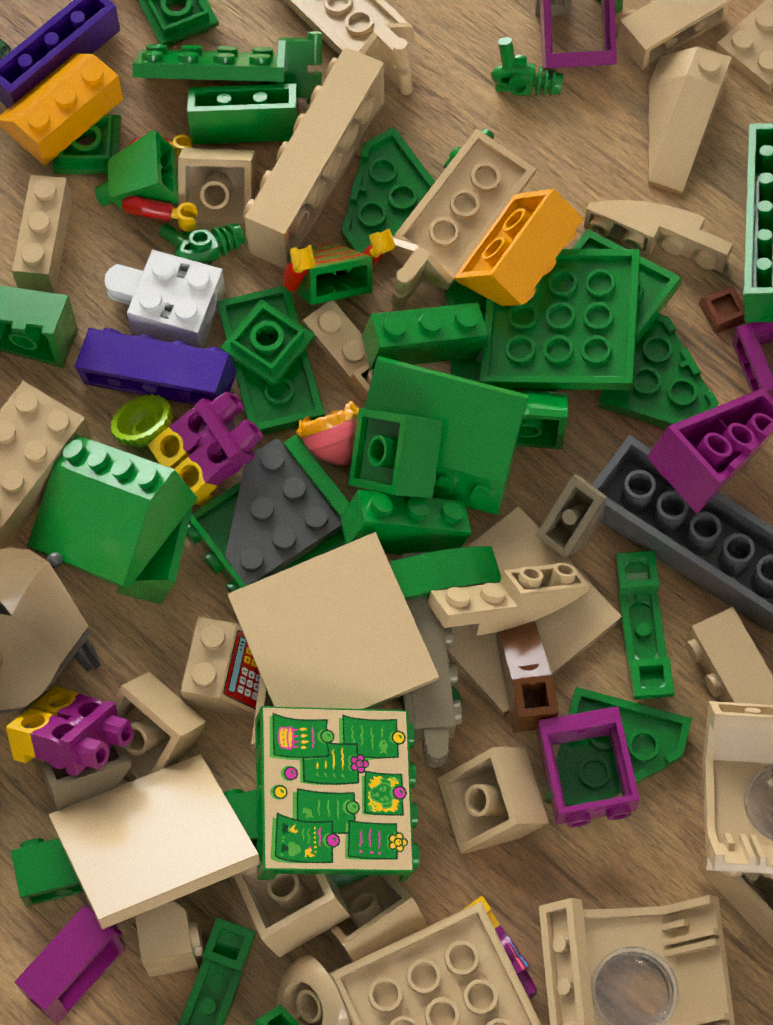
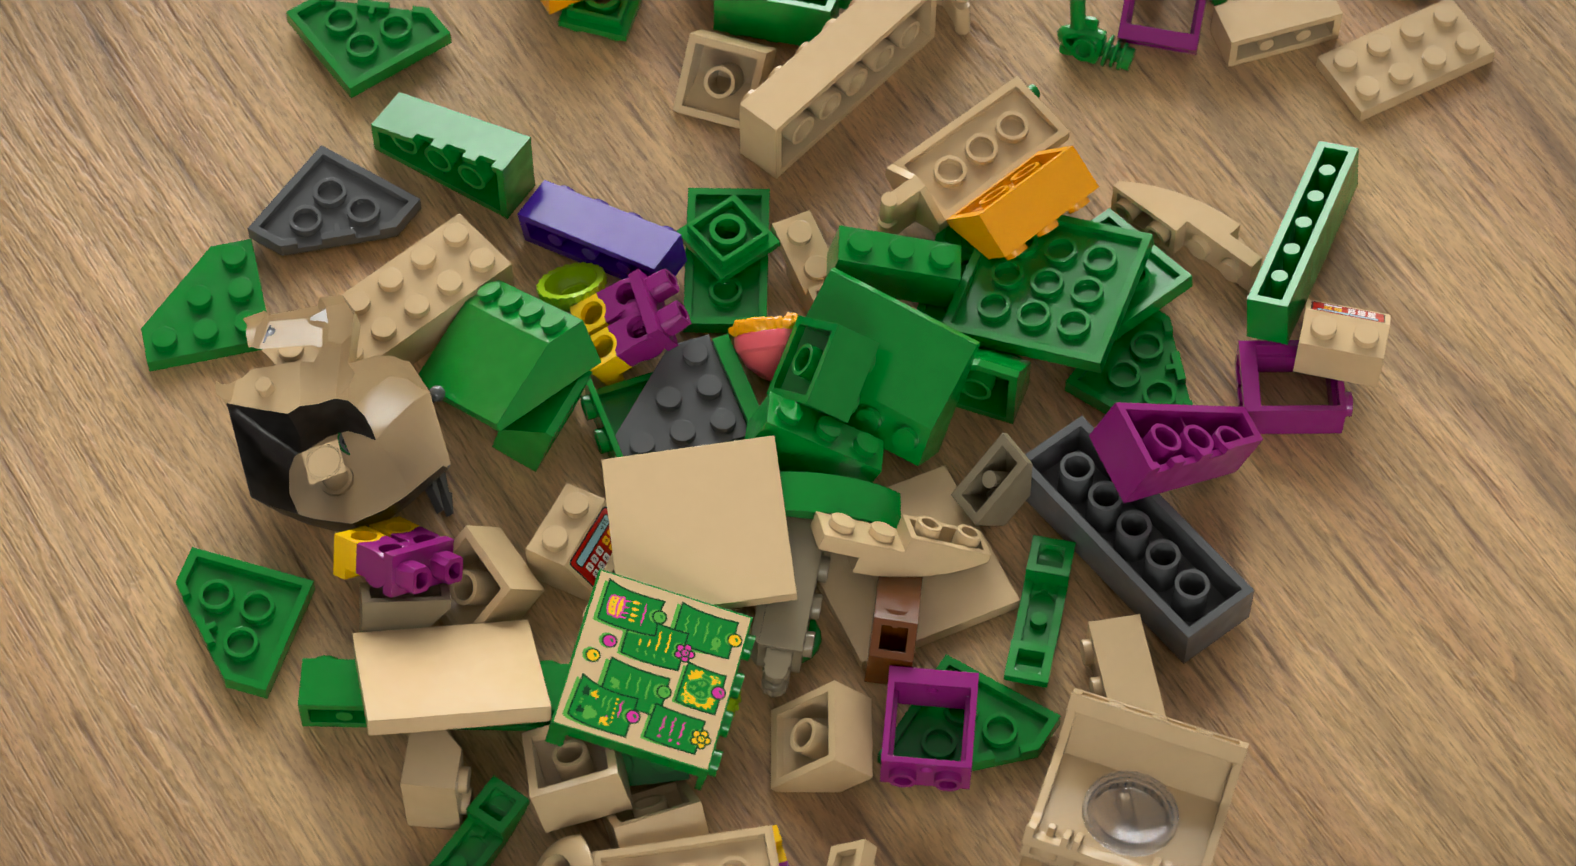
camera: 15 degrees right, 10 degrees down
(42, 233) = (528, 76): tan brick -> none
(70, 965) = (329, 781): magenta window -> none
(145, 180) = (651, 51): green torso -> none
(168, 298) = (640, 170): white brick -> none
(202, 244) = (689, 130): green piece -> none
(334, 270) = (820, 182): torso -> none
(384, 189) = (897, 122): green plate -> none
(680, 110) = (1255, 117): tan wedge -> none
(723, 309) = (1230, 325): copper tile -> none

